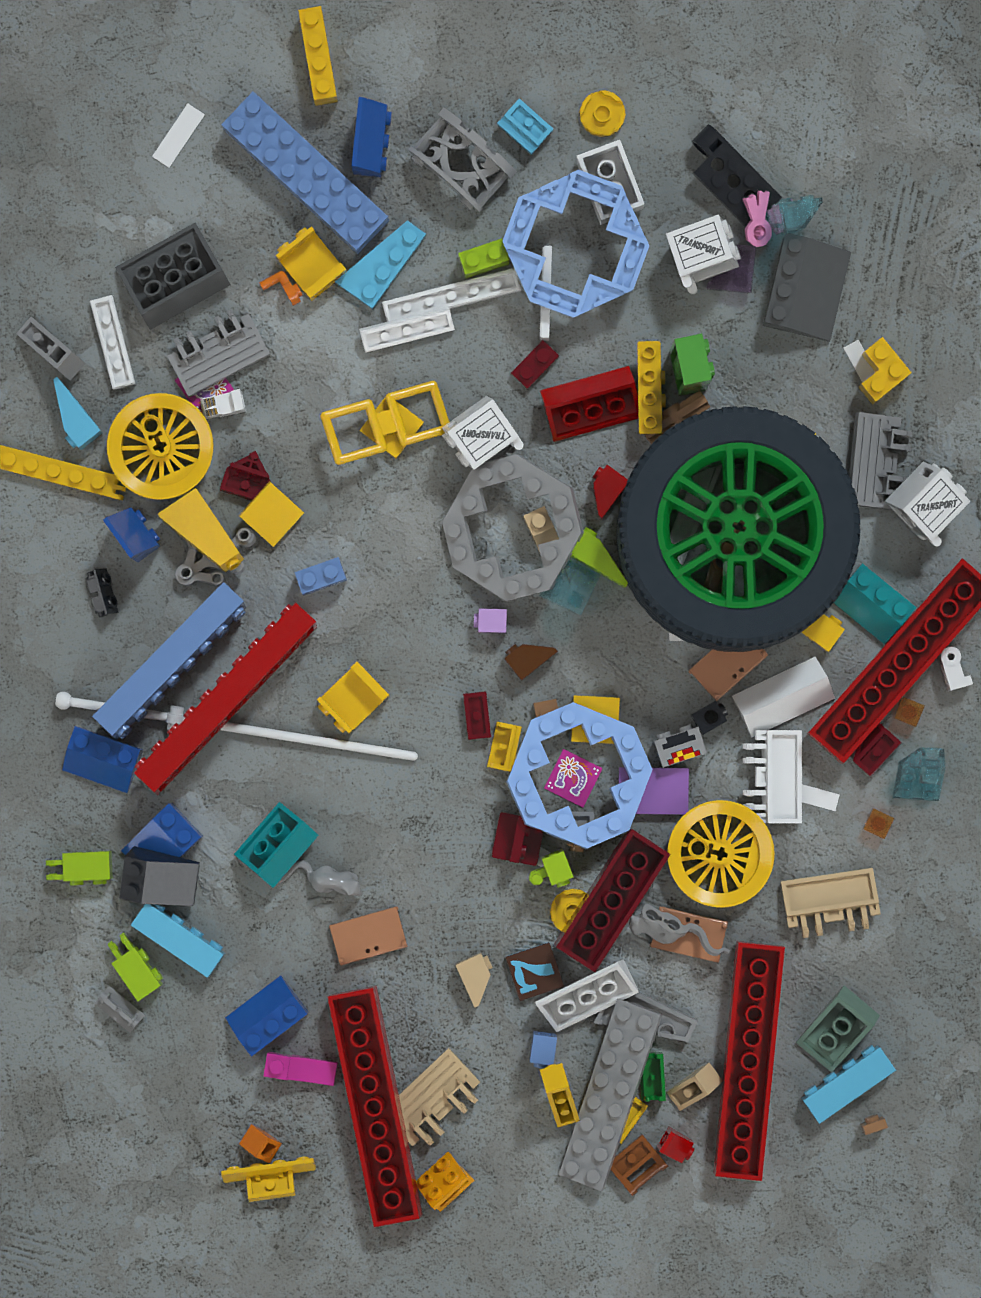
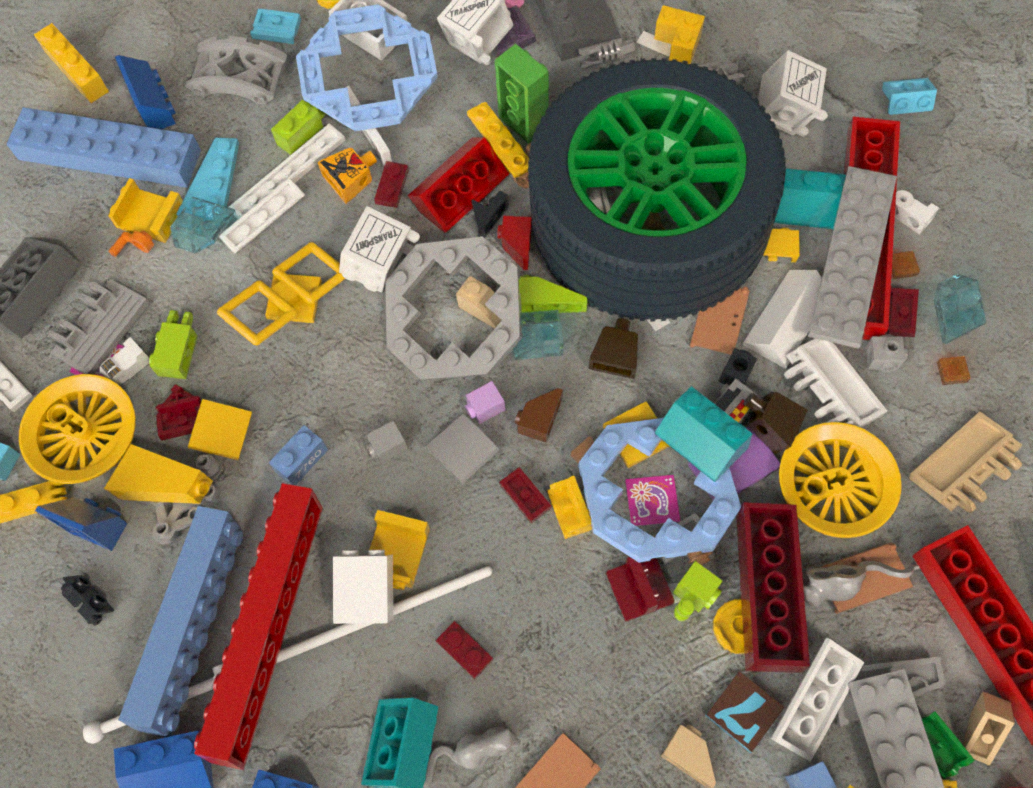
camera: 30 degrees left, 20 degrees down
(270, 414) = (174, 346): none -> lime hinge
(312, 718) = (362, 587): none -> white brick
(351, 312) = (200, 224): none -> clear light blue slope
(361, 804) = (464, 650): none -> dark red plate
(394, 606) = (386, 442): none -> light grey brick
(451, 647) = (462, 448): none -> light grey slope
(503, 332) = (347, 172): none -> light orange torso
(593, 453) = (488, 215): none -> black slope
(624, 640) = (616, 350): none -> dark brown torso
(637, 759) = (703, 434): none -> slope
(705, 778) = (775, 419): none -> dark brown torso
(805, 346) = (606, 51): none -> light grey hinge
(819, 797) = (885, 382): white sticker -> none
(825, 776) = (885, 353): none -> light grey brick
(863, 685) = (853, 257): none -> light grey plate

